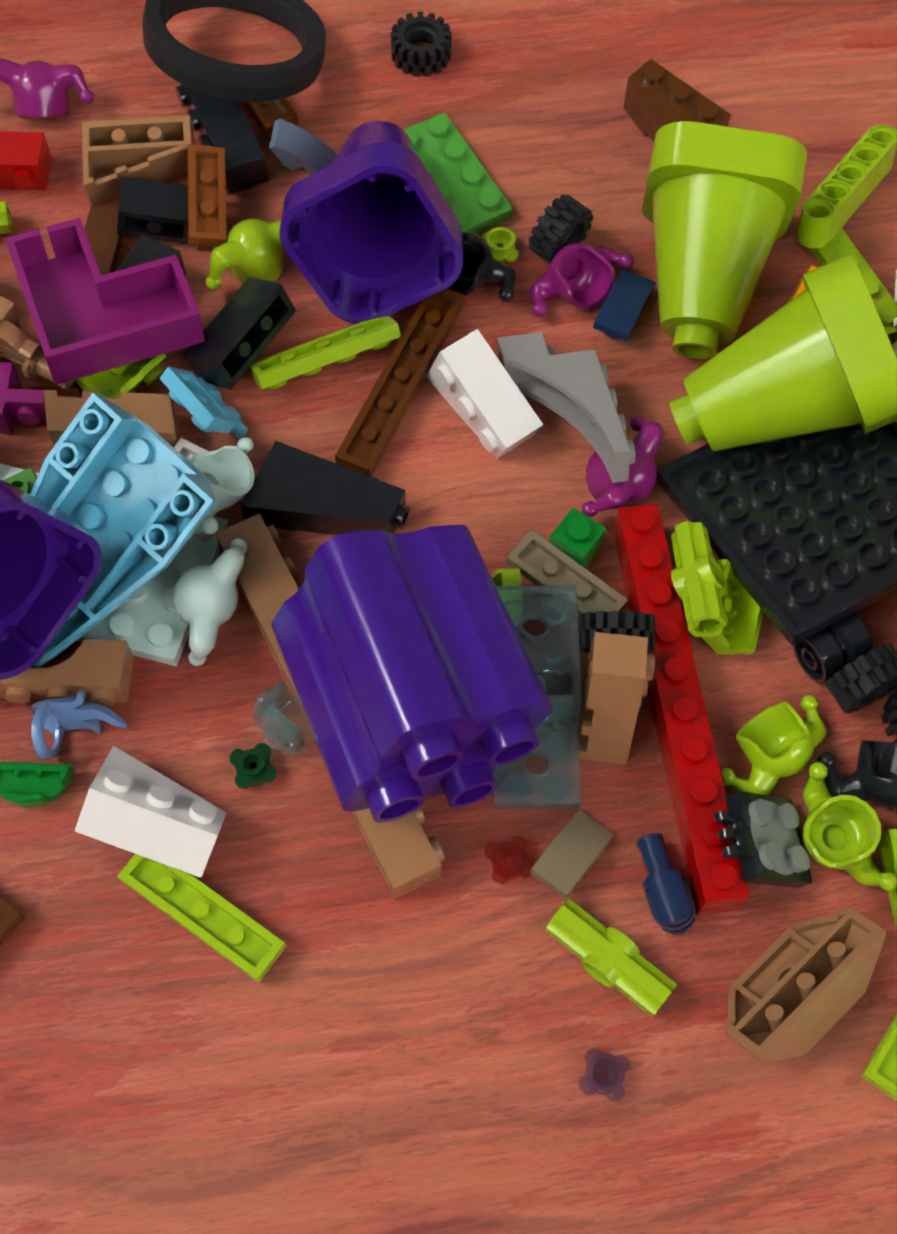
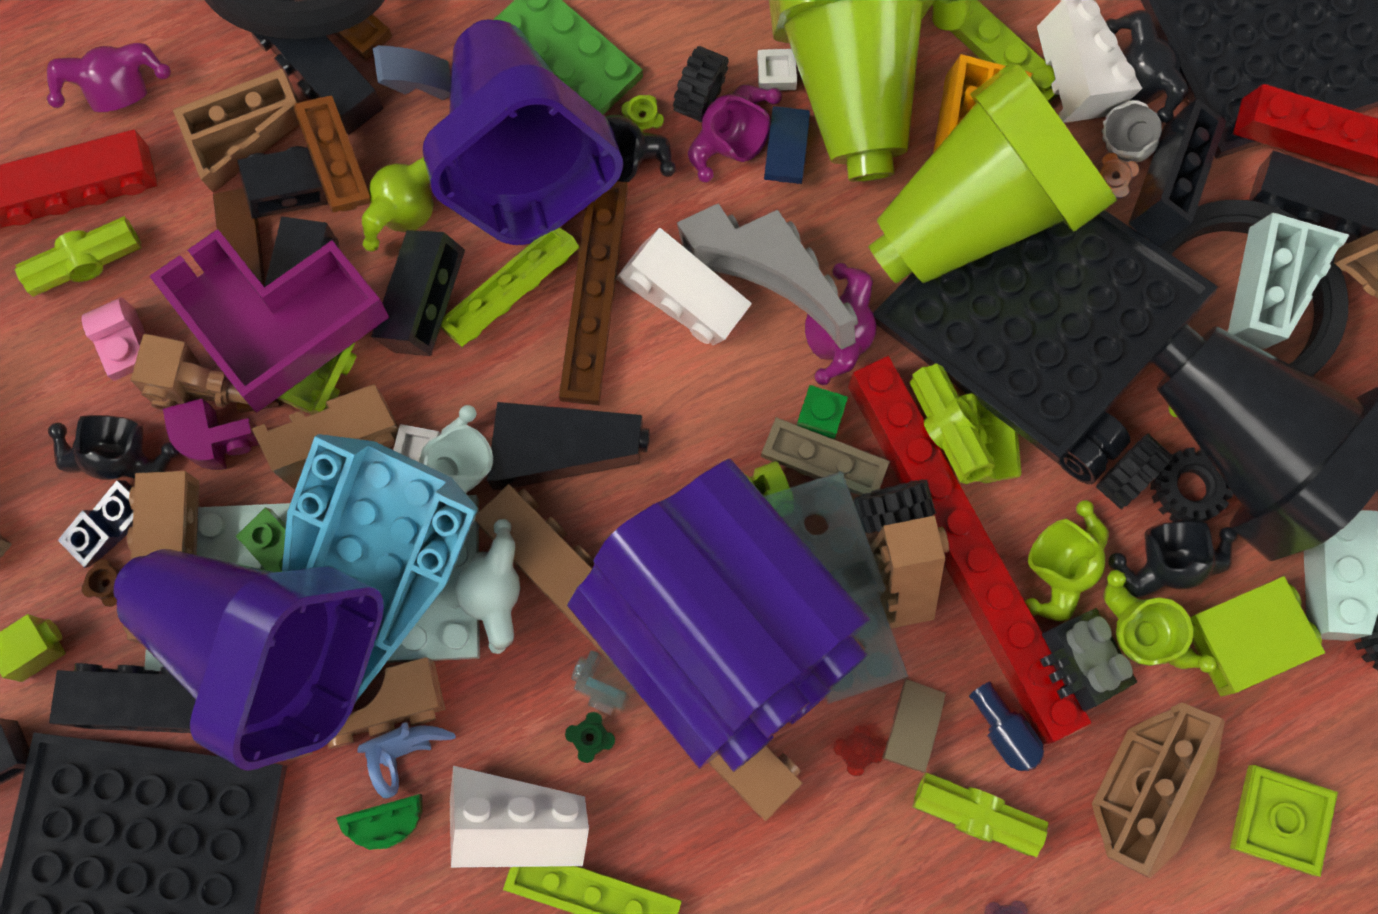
camera: 15 degrees left, 10 degrees up
(203, 402) = (410, 382): medium azure plate -> none
(636, 240) = (776, 69): none -> white plate

